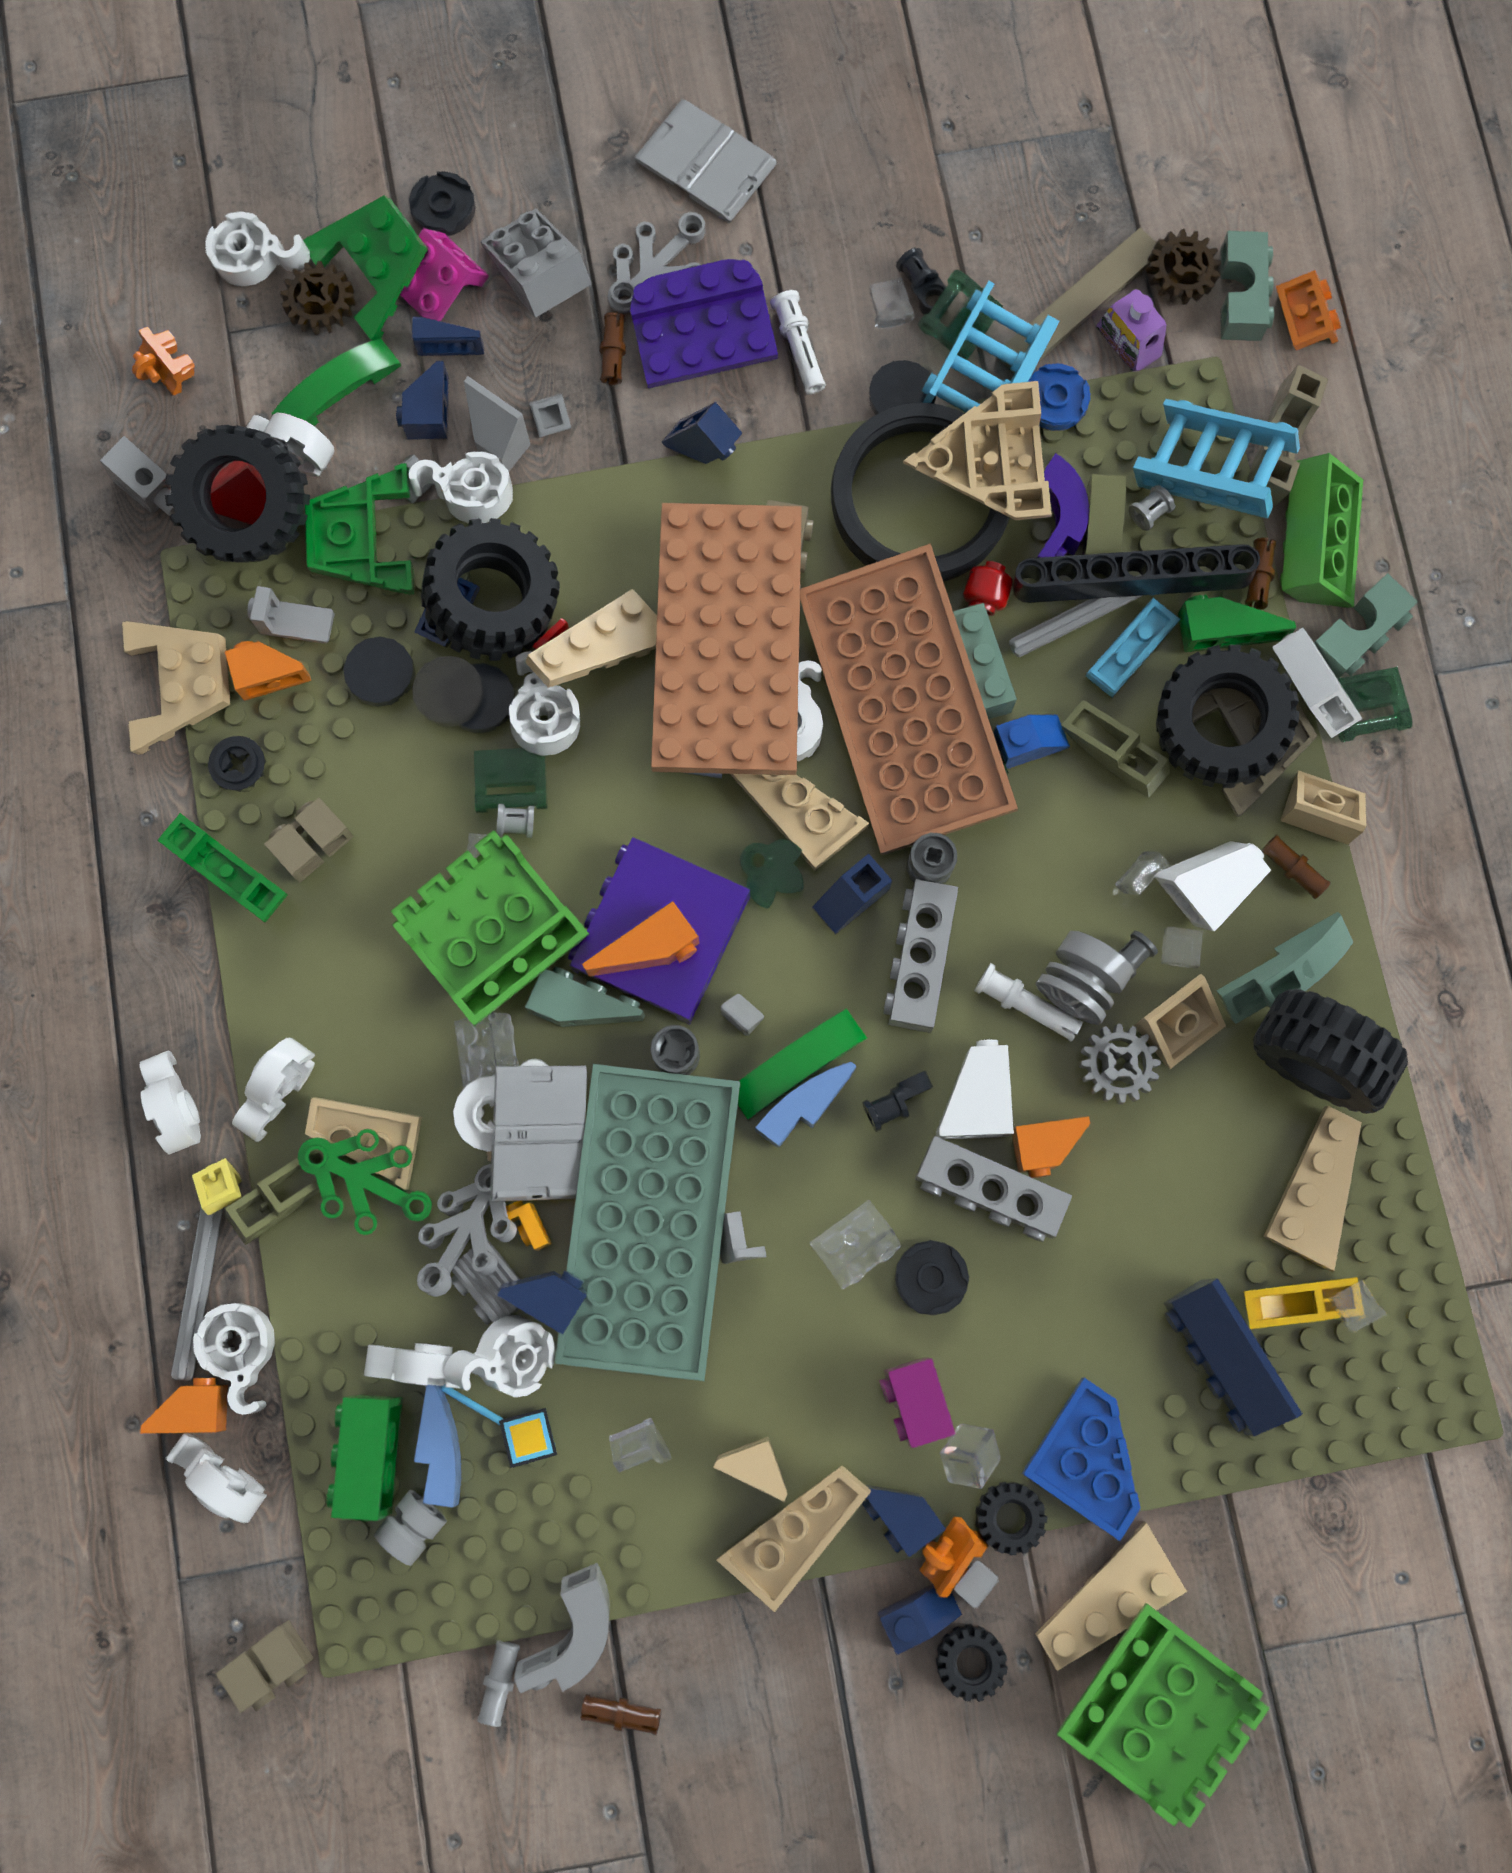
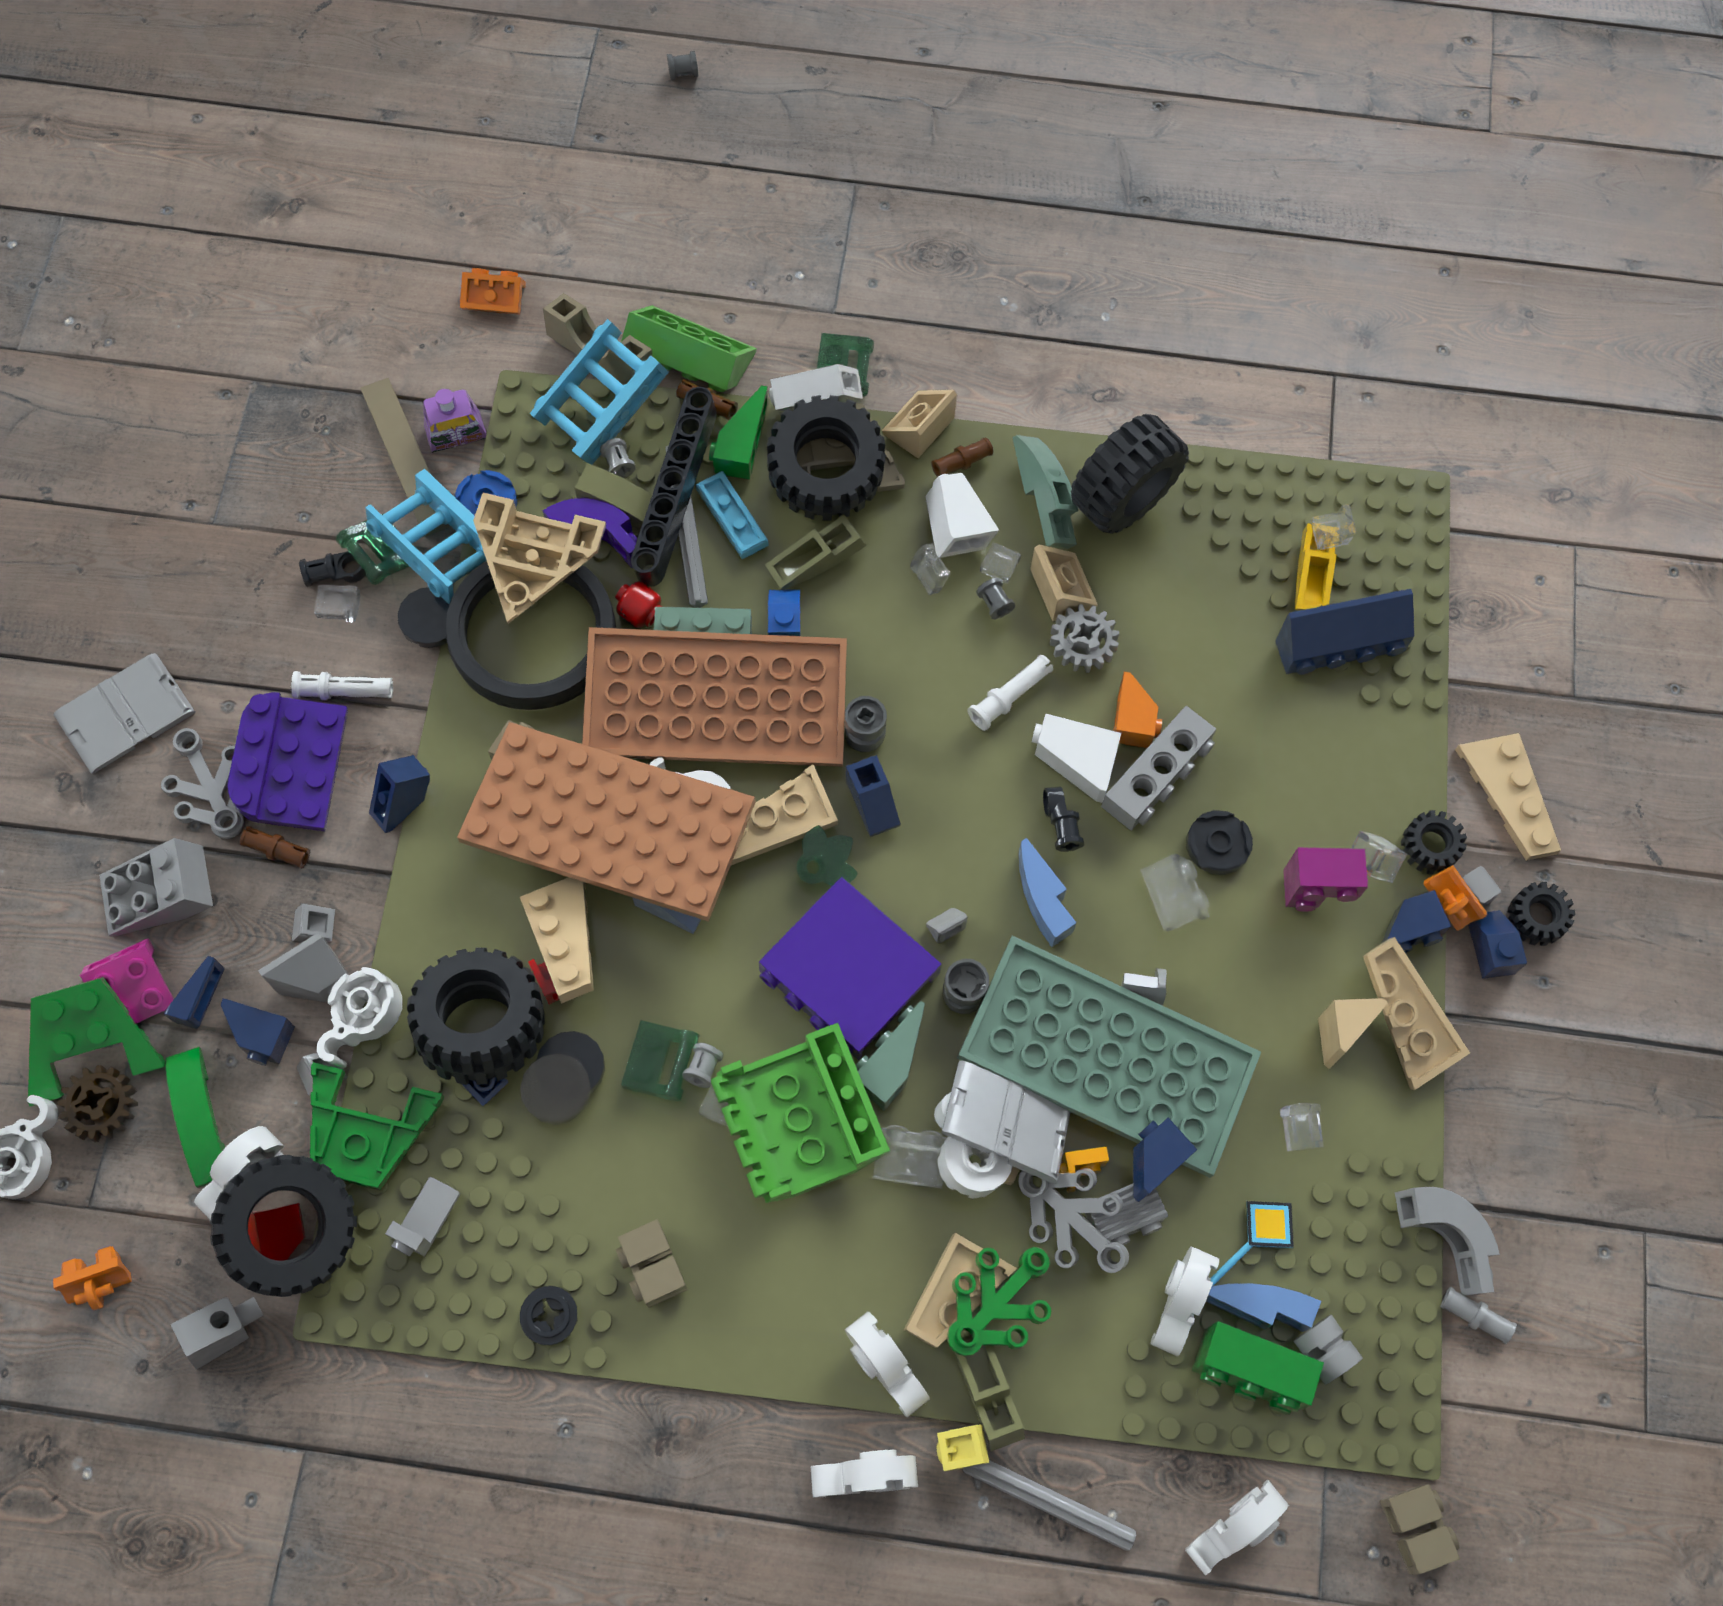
camera: 75 degrees left, 10 degrees down
(190, 679) = (440, 1338): tan wing -> none
(191, 1409) = (1166, 1537): orange slope -> none
(222, 867) = (651, 1356): green slope -> none
(237, 1366) = (1136, 1475): white piece -> none
(263, 670) = (464, 1261): orange slope -> none
(379, 671) = (507, 1151): black tile -> none
(442, 203) = (52, 959): black tile -> none
(508, 1358) = (1201, 1213): white piece -> none
(536, 700) = (595, 1007): white piece -> none
(621, 1714) = (1526, 1215): reddish brown pin -> none
(650, 944) = (865, 963): orange slope -> none
(798, 1062) = (1004, 887): green slope -> none
(940, 903) = (935, 744): light grey brick -> none
(1085, 977) = (1007, 636): light grey wheel -> none
(1088, 1461) = (1400, 769): blue plate -> none
(1164, 1717) = (1616, 776): bright green slope -> none
(1183, 266) = (411, 366): dark brown gear -> none
(1247, 260) = (427, 319): sand green arch -> none
(1317, 1195) = (1231, 534): tan wing -> none
(1382, 608) = (771, 326): sand green arch -> none

